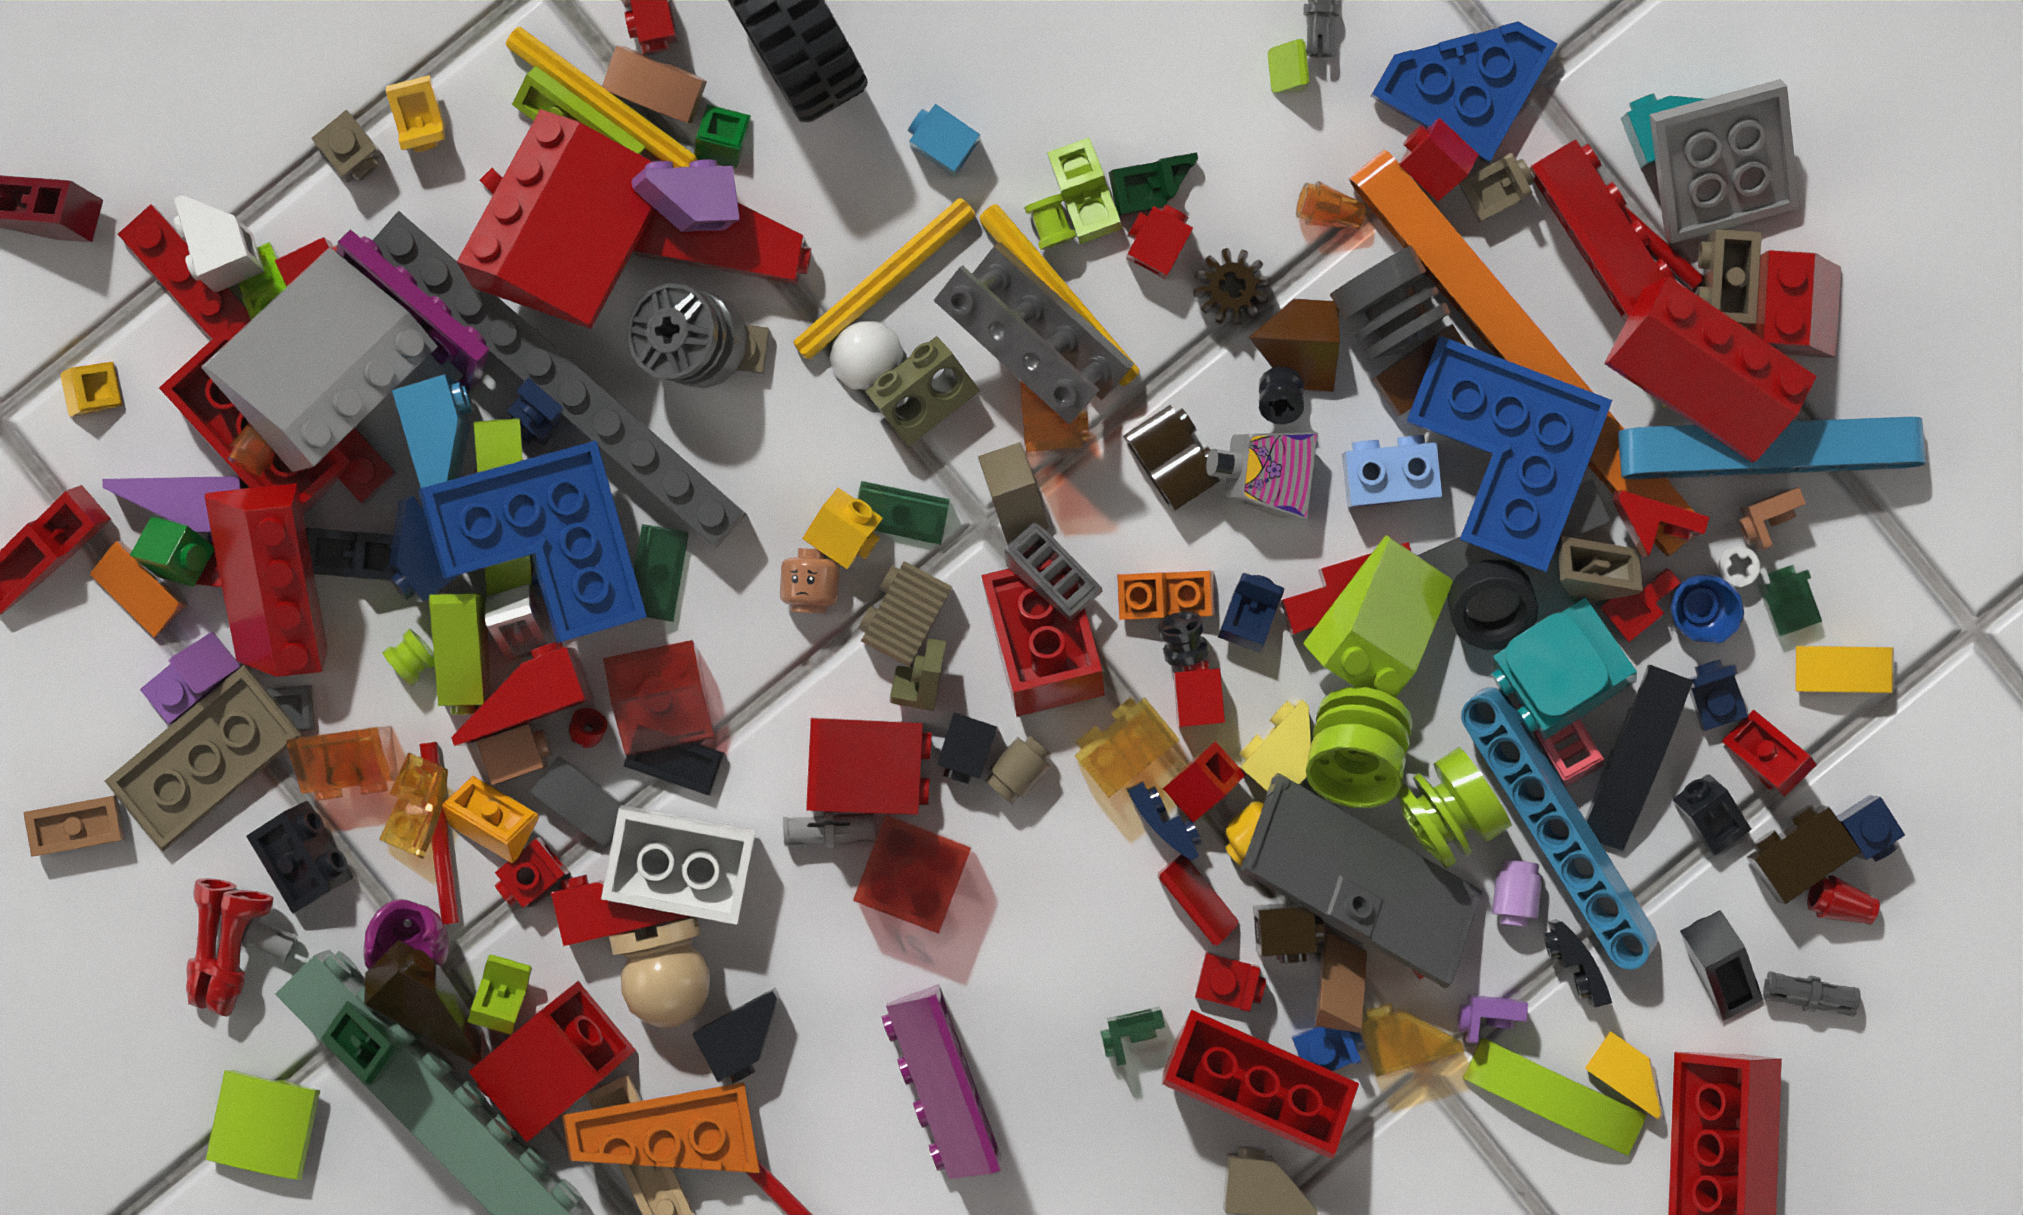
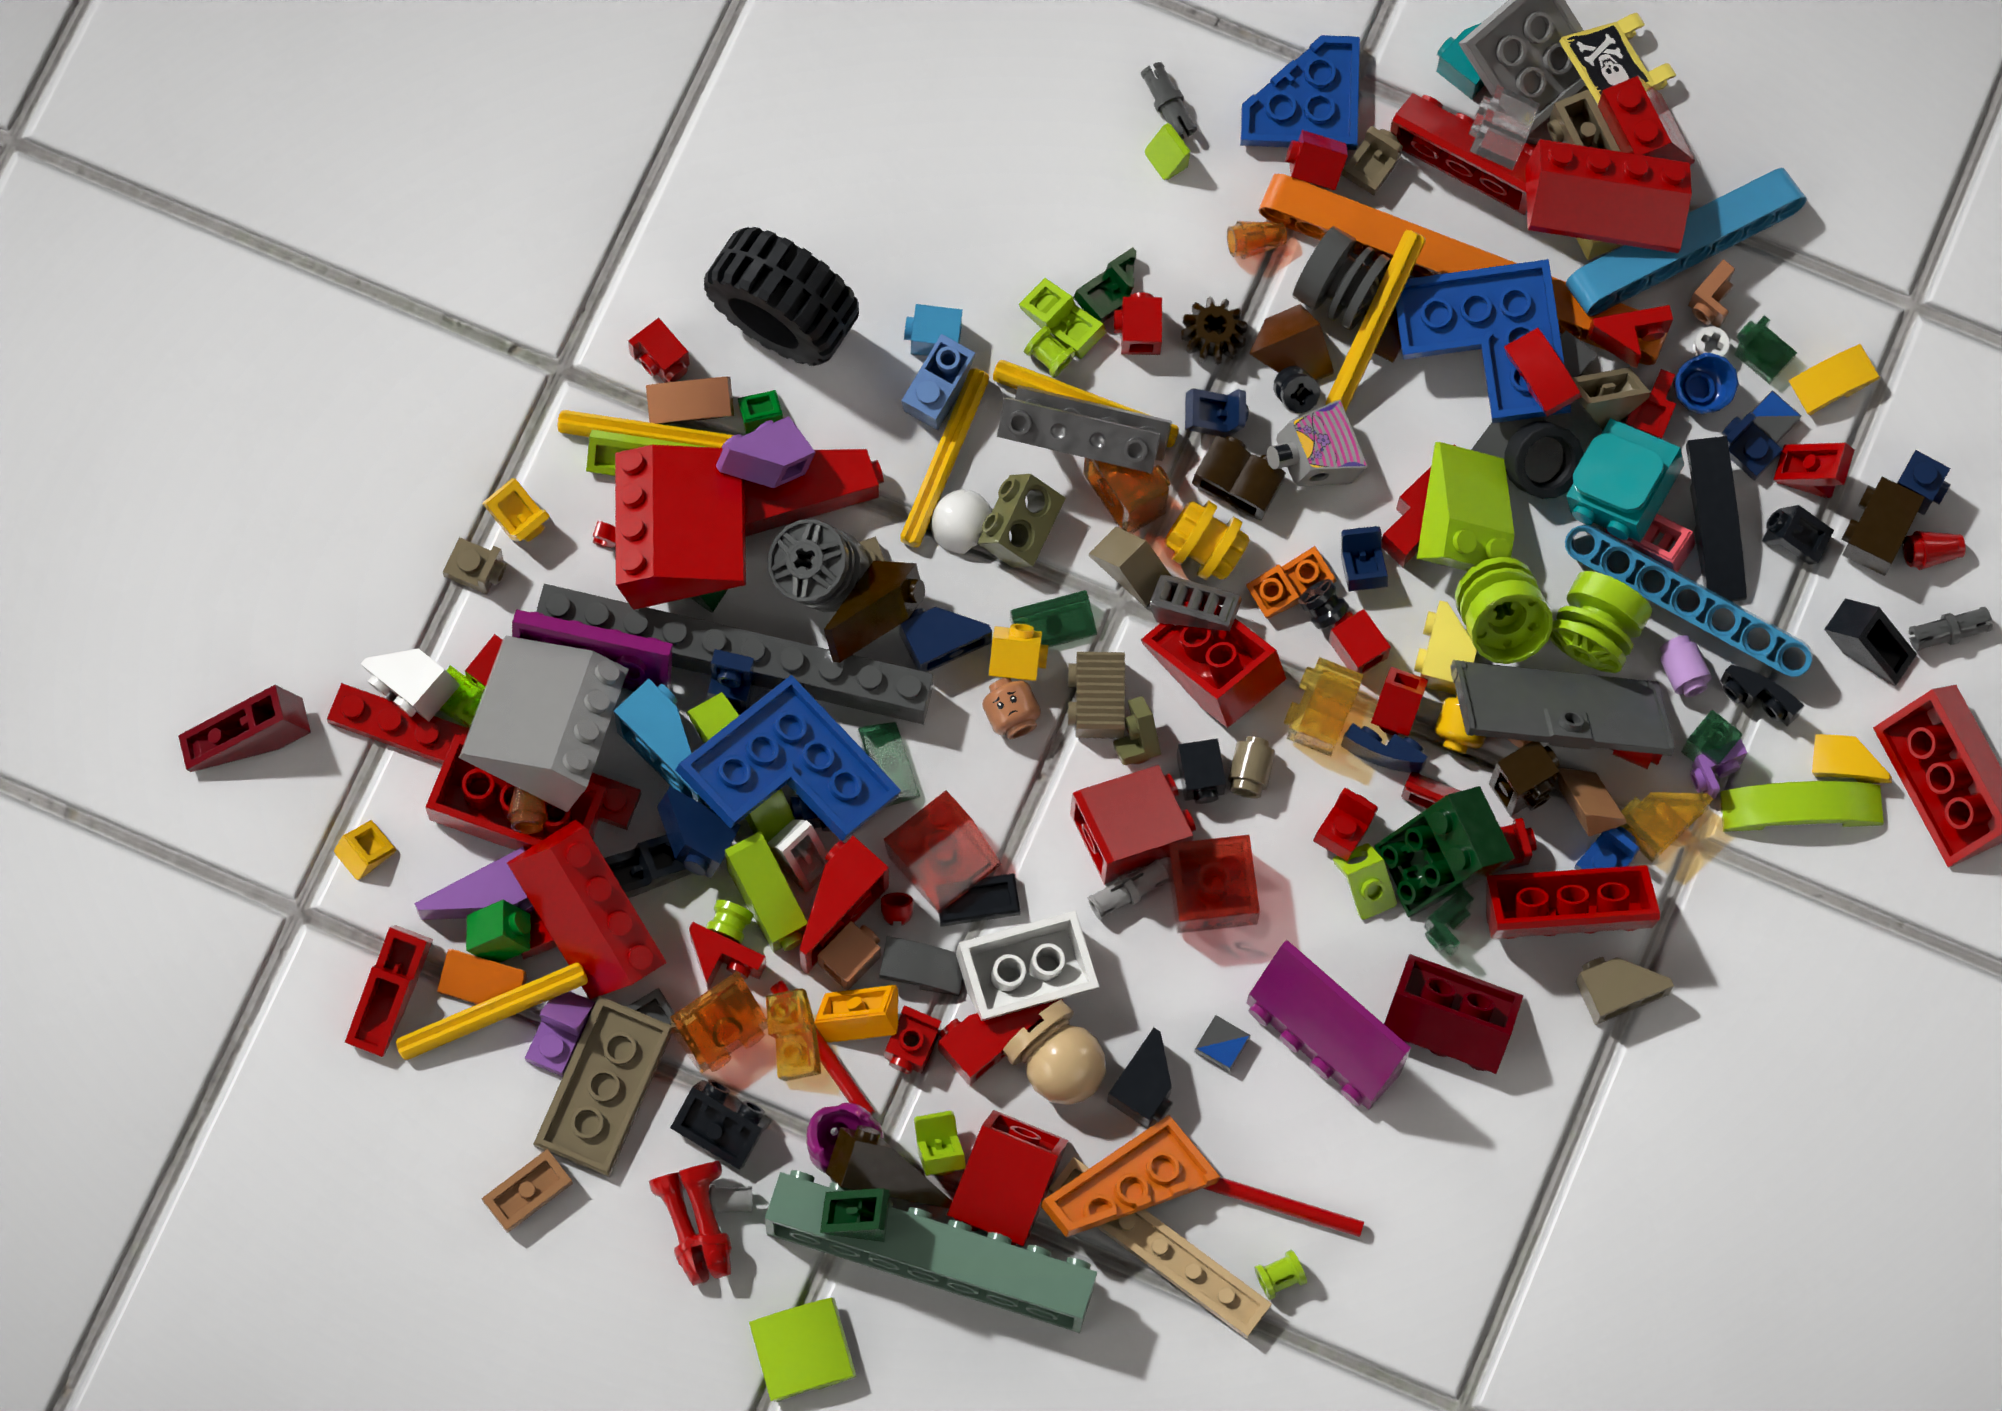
camera: 30 degrees left, 15 degrees down
(128, 626) = (491, 1011): none -> yellow axle
(379, 677) = (716, 949): none -> red slope
(719, 411) = (875, 606): none -> dark brown slope
(775, 469) = (941, 637): none -> dark blue slope
(839, 1034) = (1222, 1043): none -> tile
(915, 199) = (938, 382): none -> medium blue slope
(1072, 947) = (1368, 882): none -> lime bracket
(1081, 878) = (1346, 824): none -> red bracket
(1083, 1126) = (1453, 1014): none -> dark red slope
(1100, 510) = (1207, 540): none -> yellow piece
(1162, 964) = (1444, 850): none -> dark green slope
(1185, 375) = (1215, 412): none -> dark blue bracket
(1391, 473) = (1412, 405): light blue brick -> none
(1400, 368) = (1376, 318): none -> yellow axle
(1499, 987) = (1712, 738): none -> clear green bracket
(1536, 521) = (1543, 371): none -> red slope
(1646, 230) = (1502, 126): none -> clear brick
(1759, 676) = (1775, 416): none -> tile
(1802, 209) = (1607, 58): none -> flag

